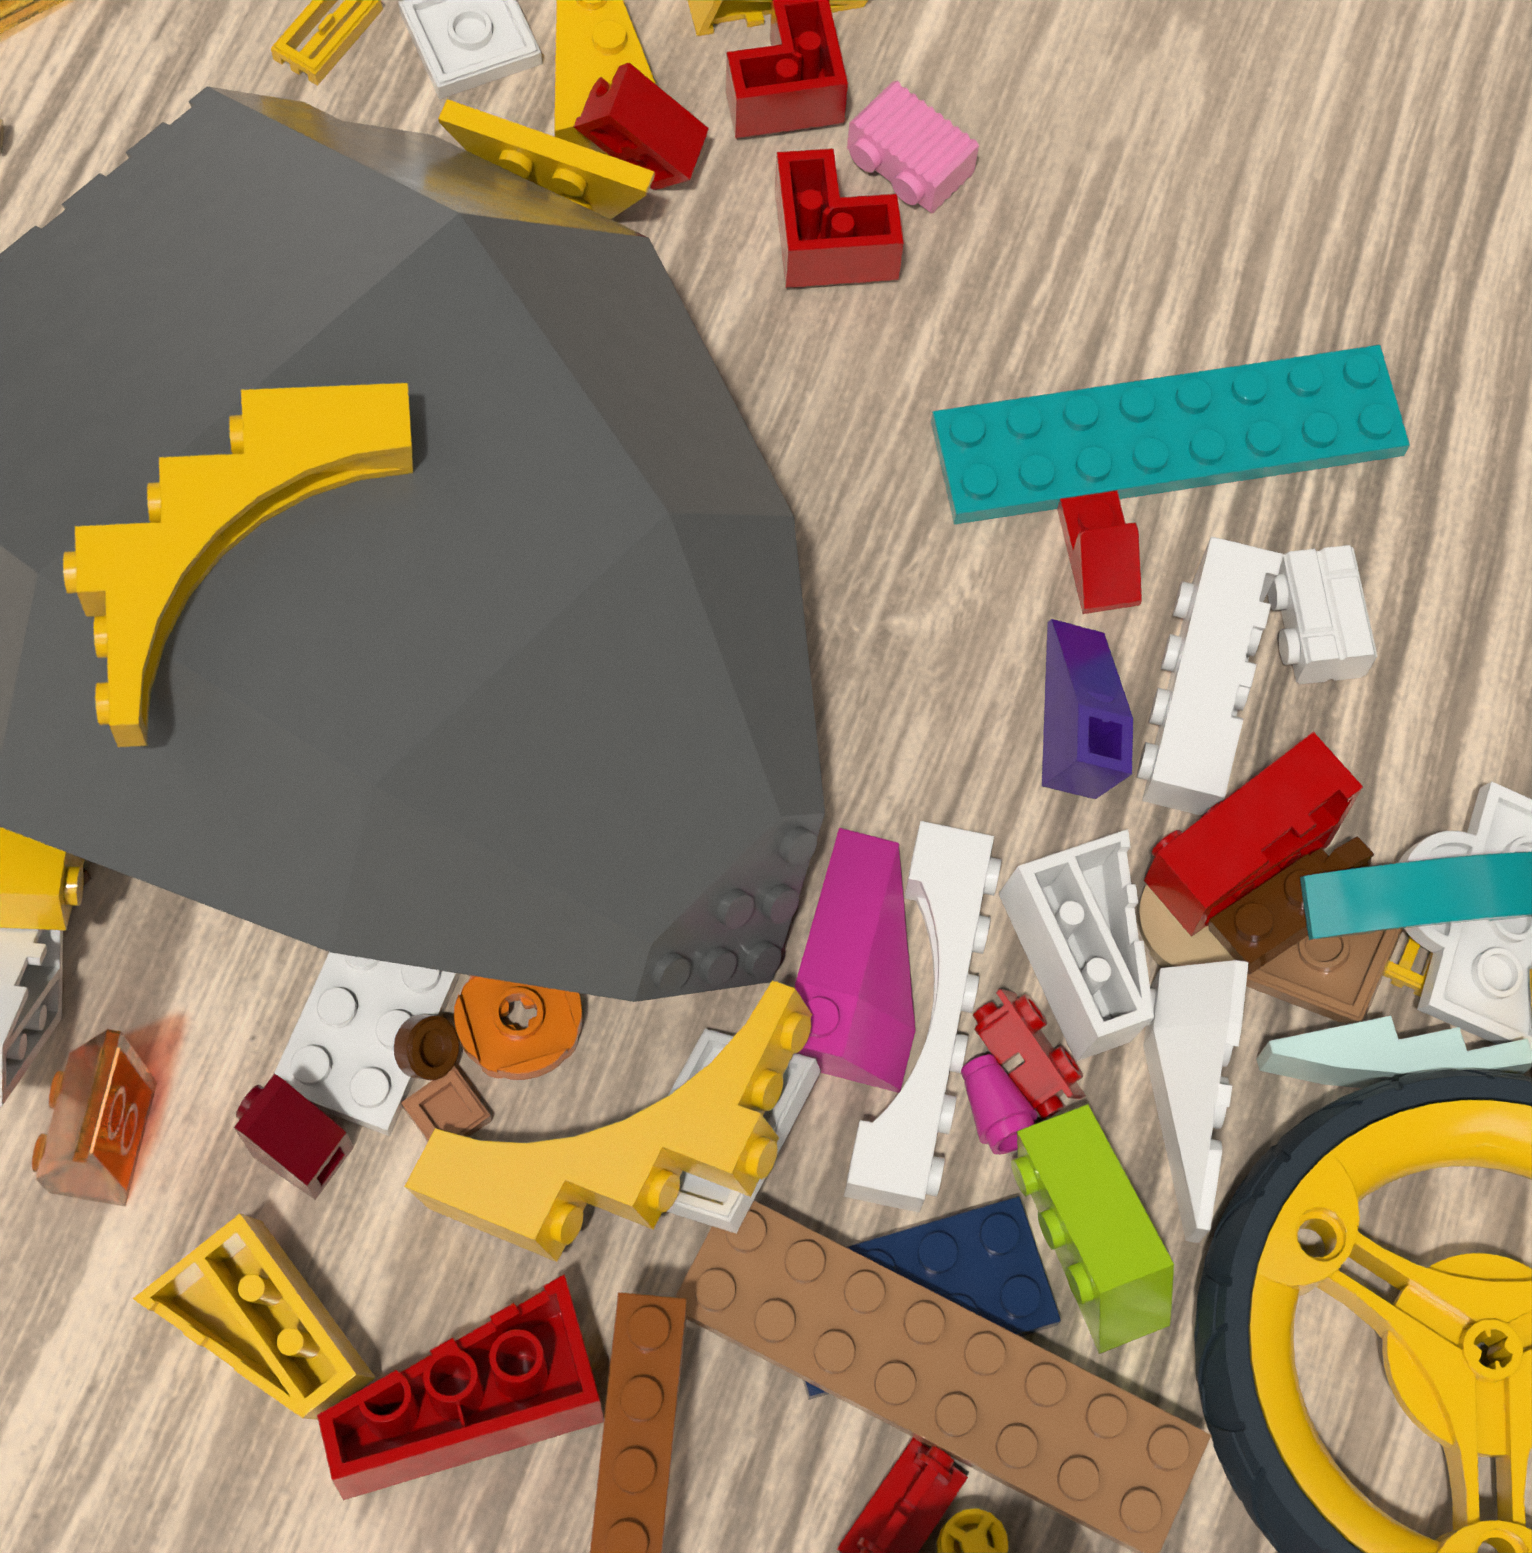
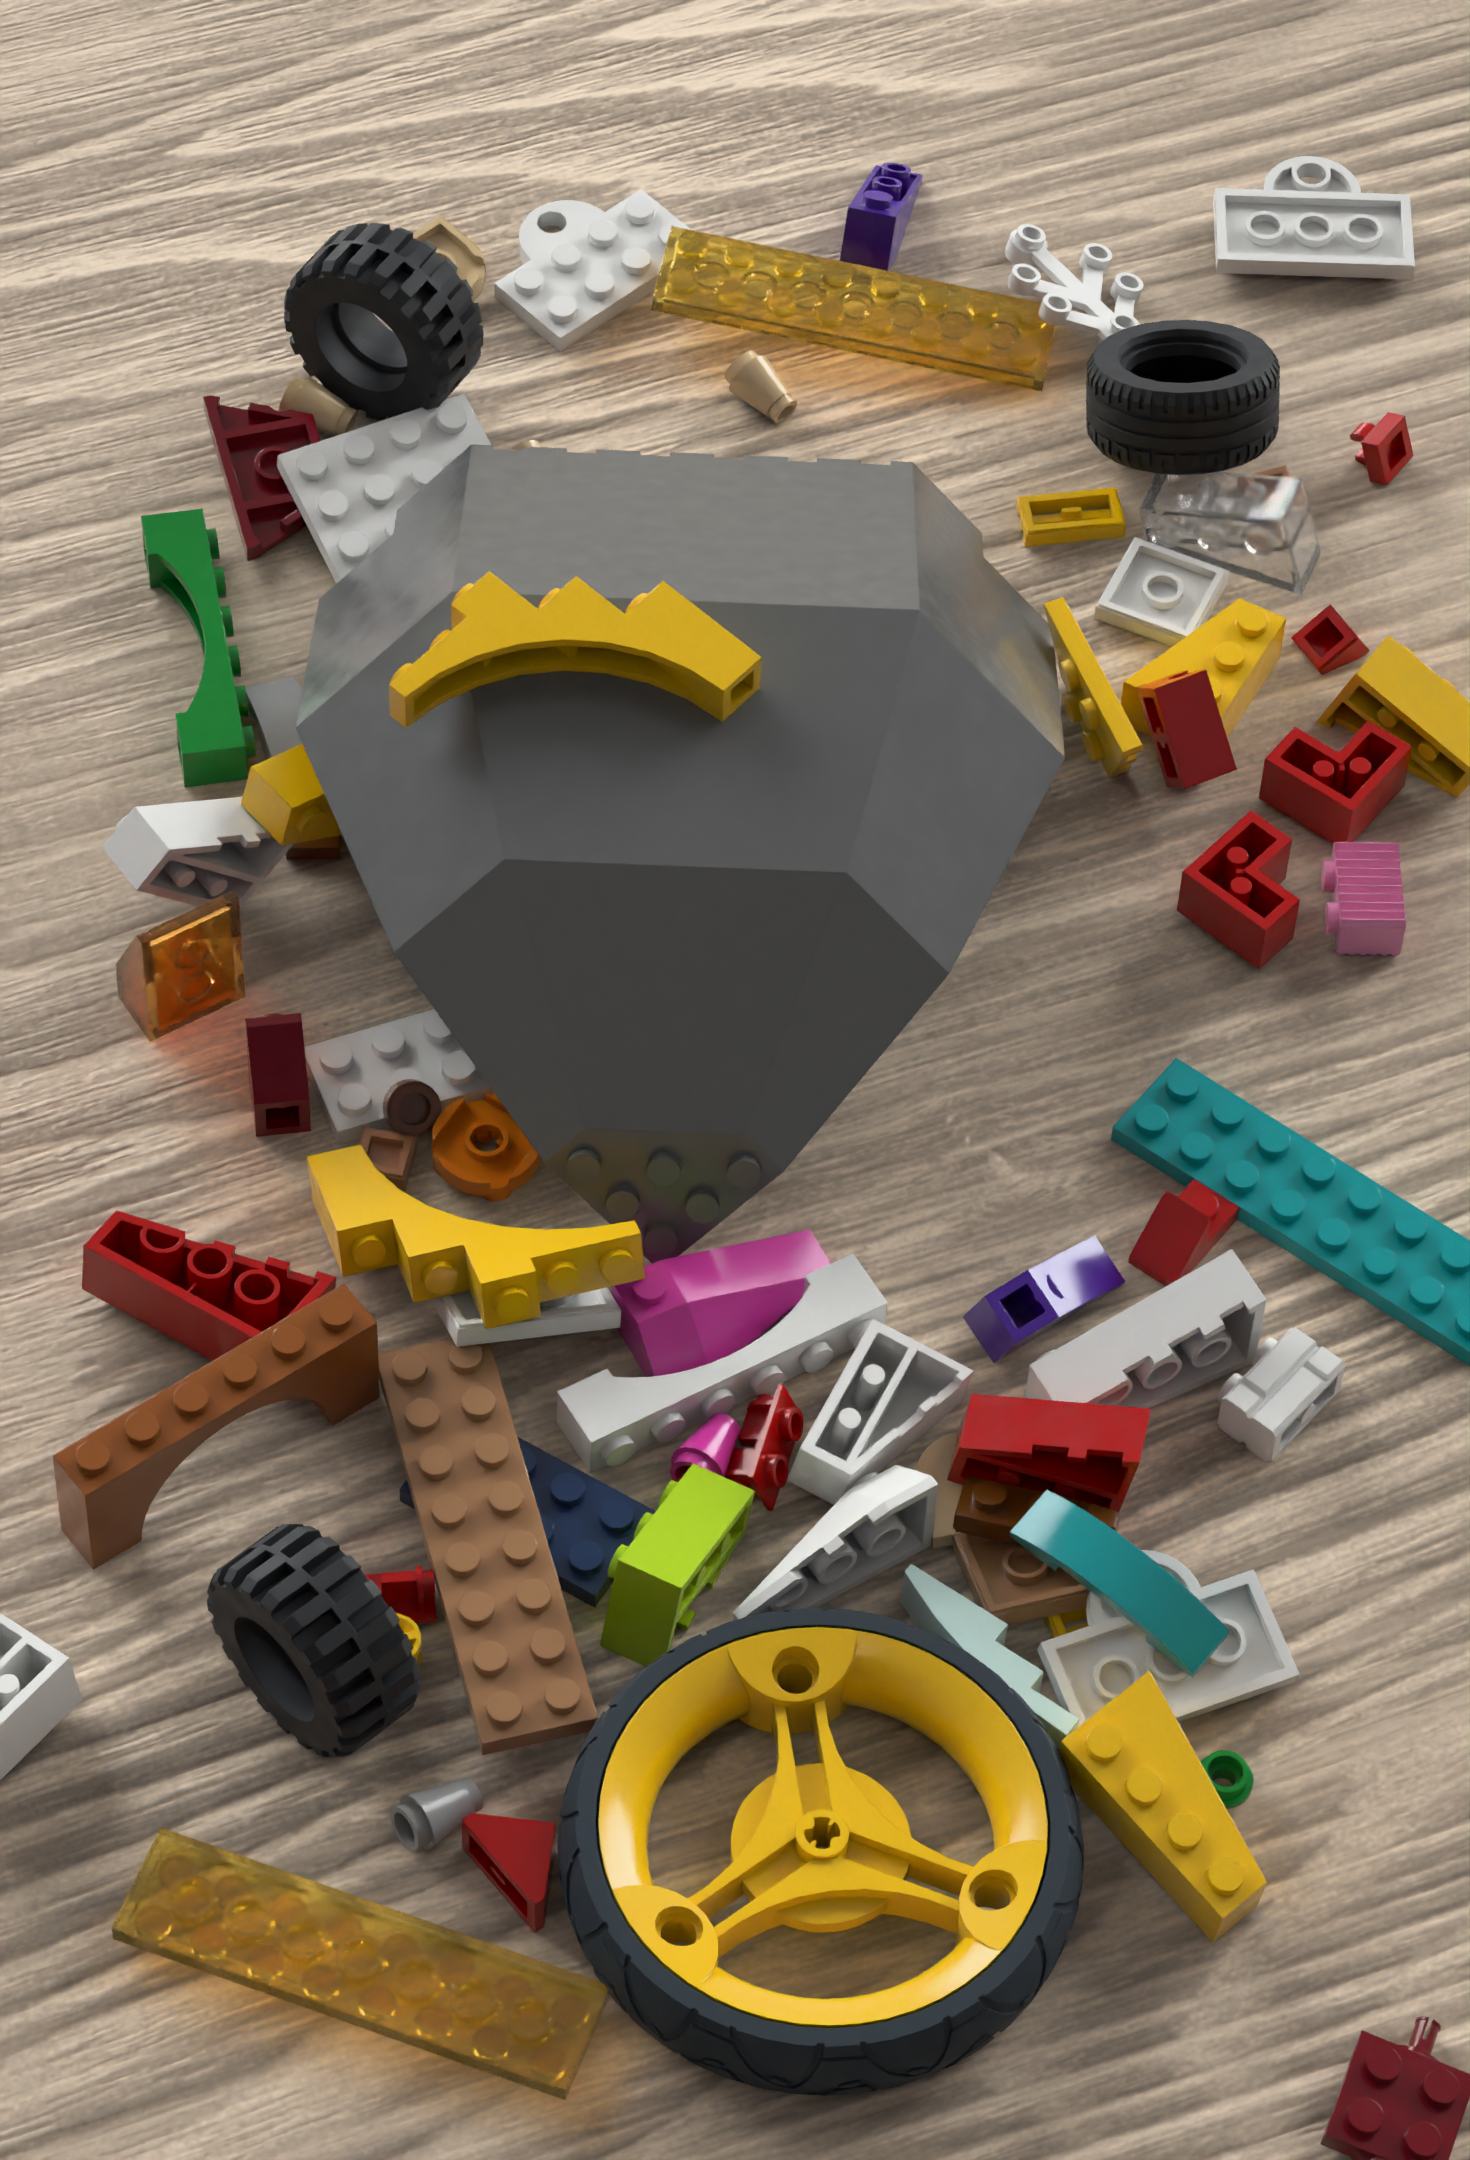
camera: 50 degrees right, 15 degrees down
(259, 1317) = (150, 1139): yellow wedge -> none

